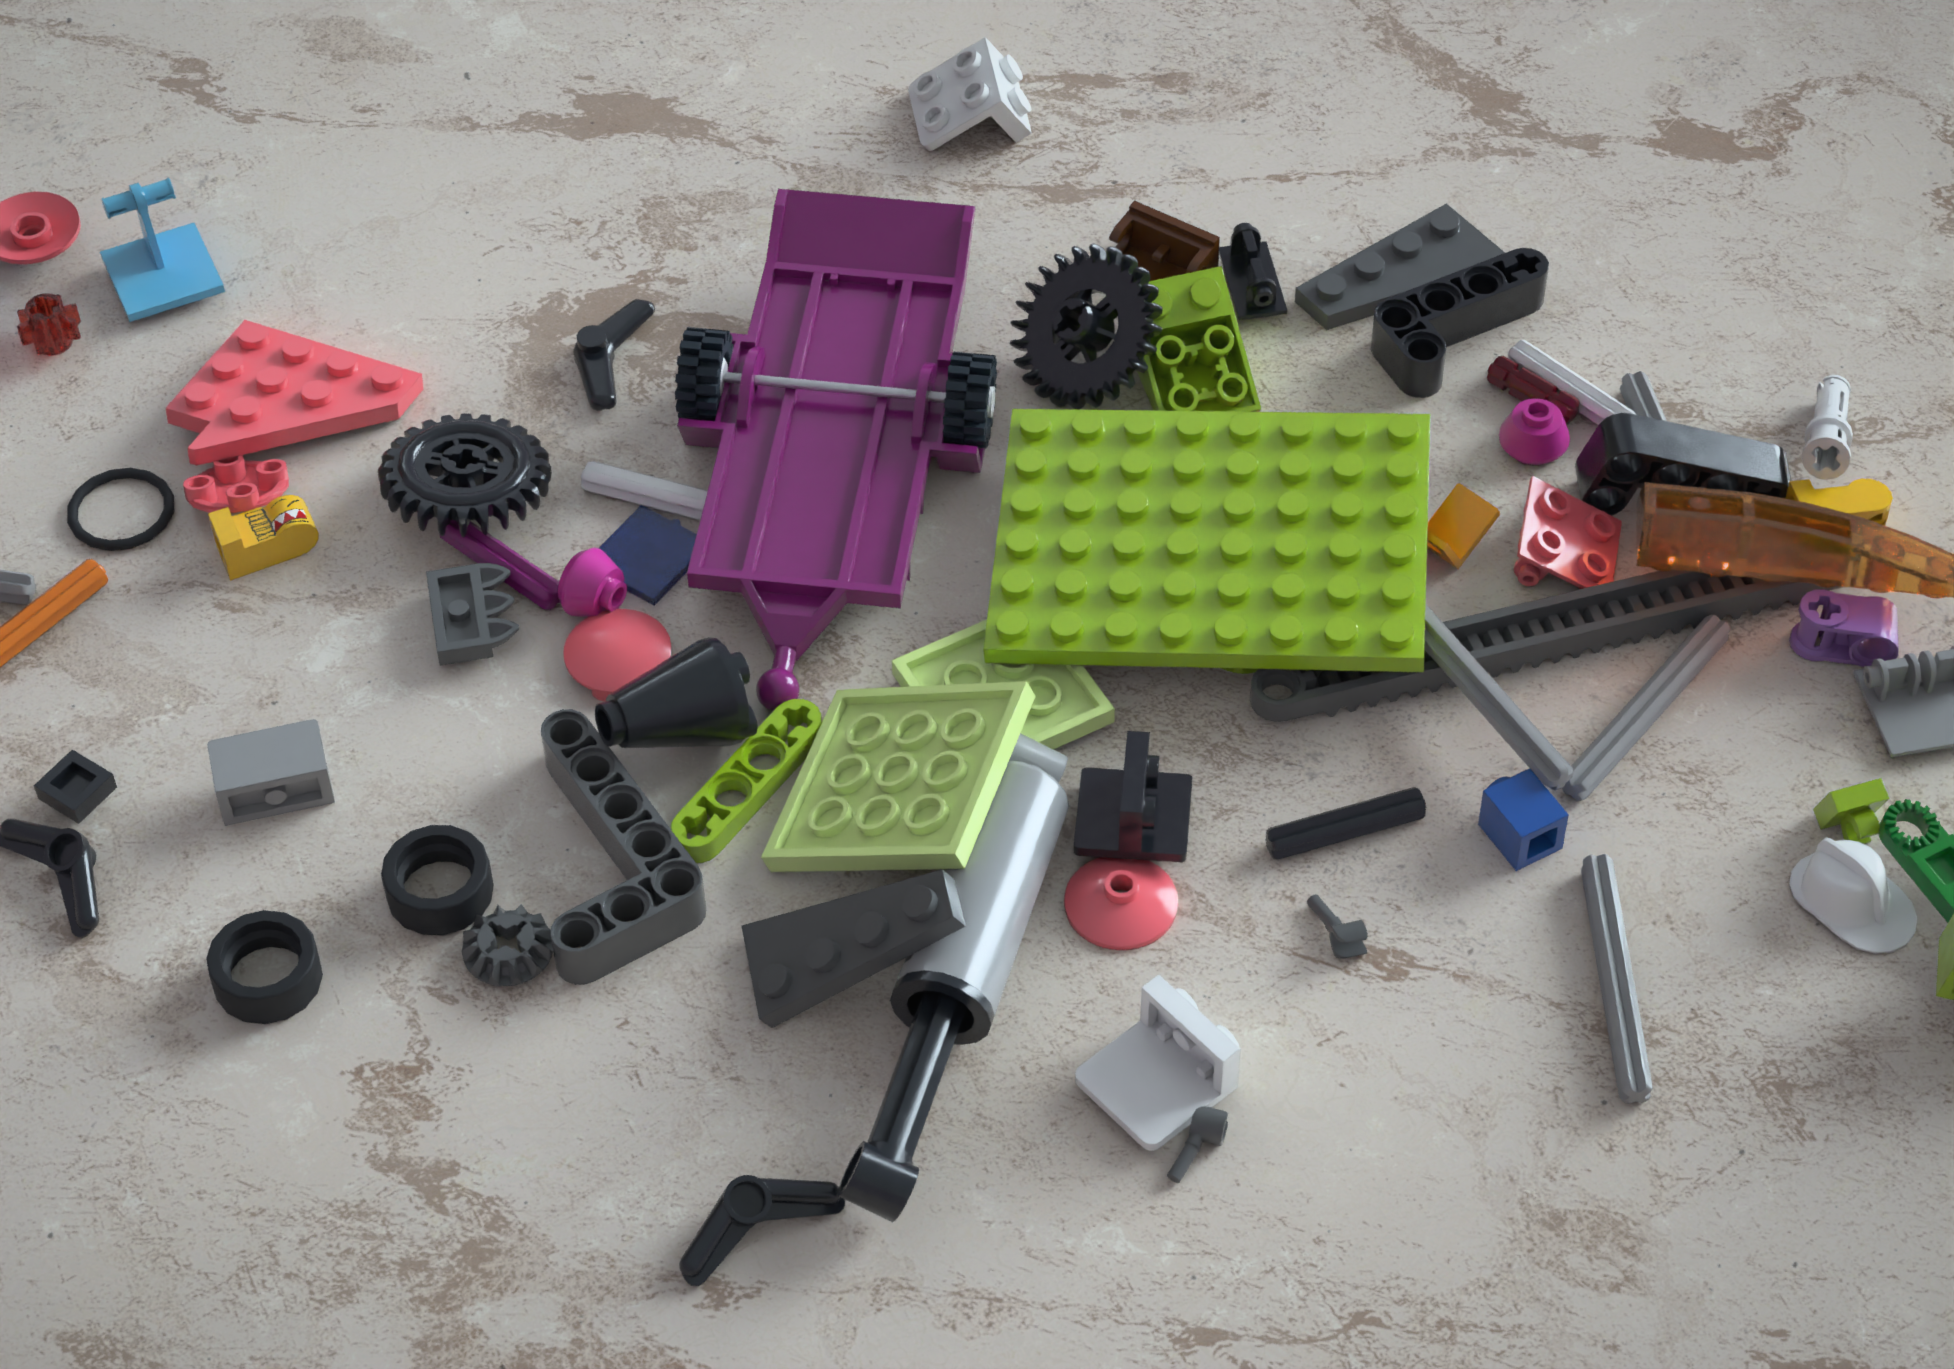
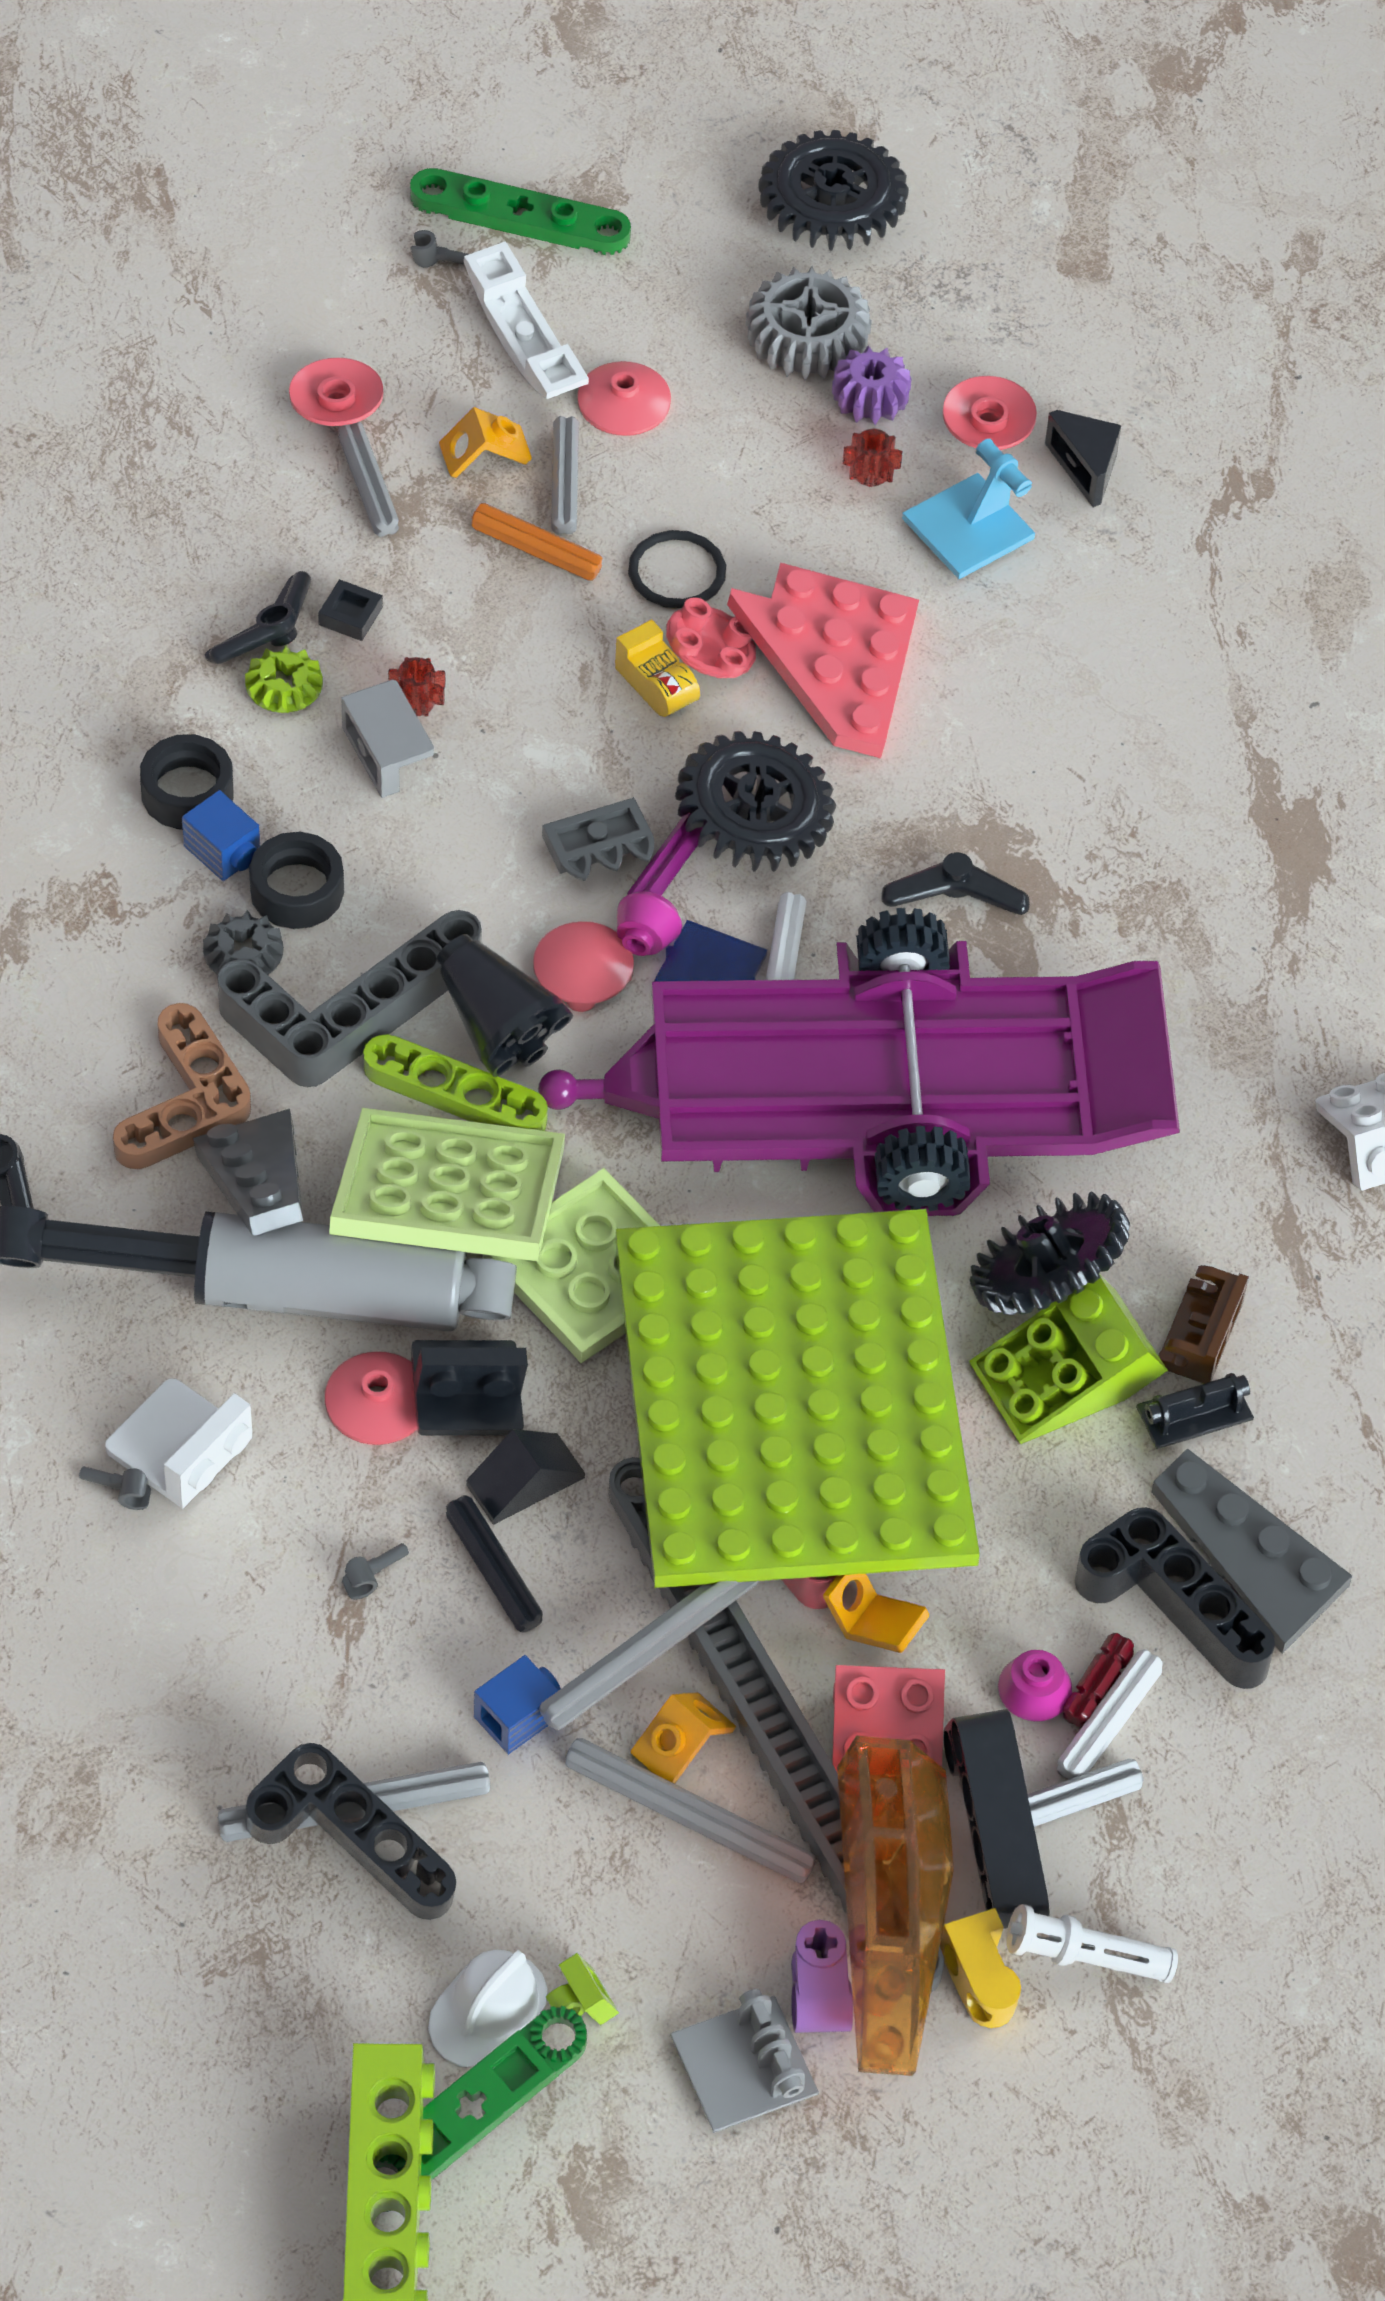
camera: 75 degrees right, 5 degrees up
(110, 164) = (1084, 450): none -> black slope
(168, 869) = (276, 694): none -> lime gear
(199, 728) = (420, 684): none -> clear red gear
(357, 939) = (221, 835): none -> blue brick
(707, 1006) = (199, 1102): none -> nougat beam
(1245, 785) = (523, 1472): none -> black slope
(1571, 698) = (679, 1734): none -> light orange bracket
(1634, 978) = (356, 1838): none -> black beam

